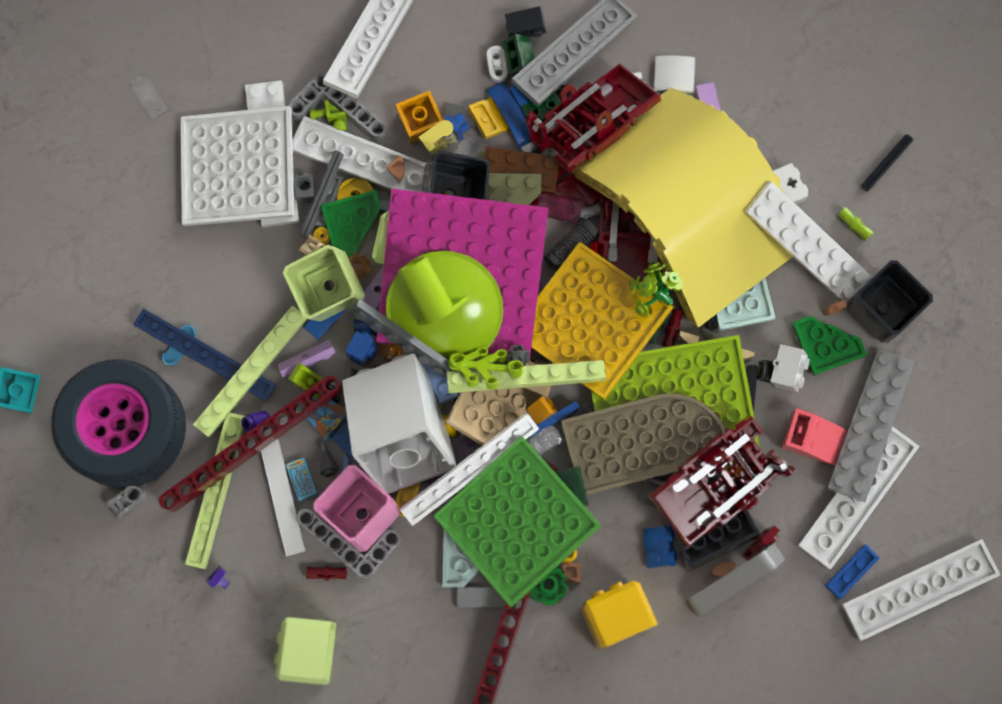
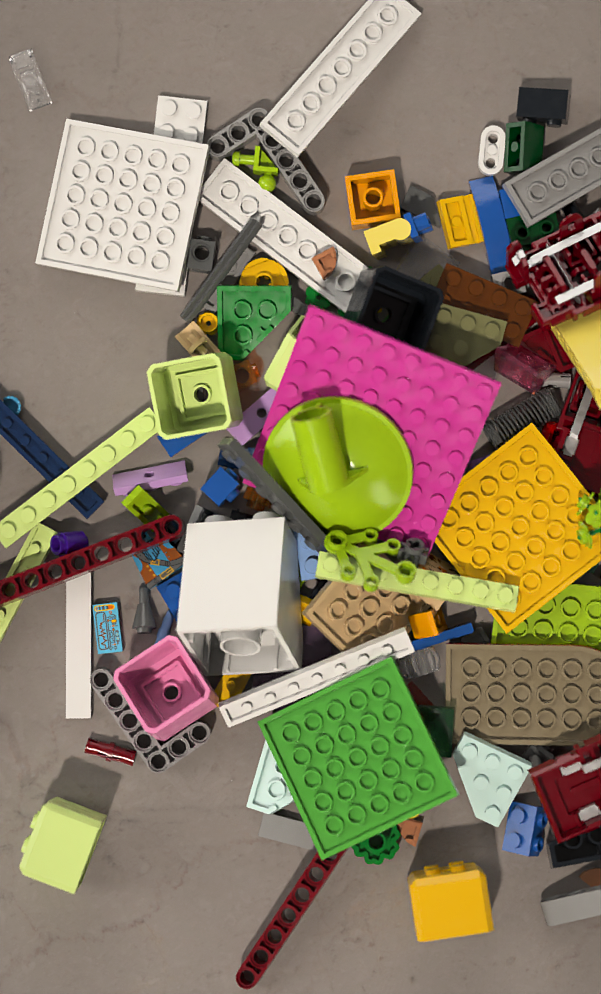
camera: 20 degrees right, 10 degrees up
(621, 512) = (489, 776): none -> light aqua plate

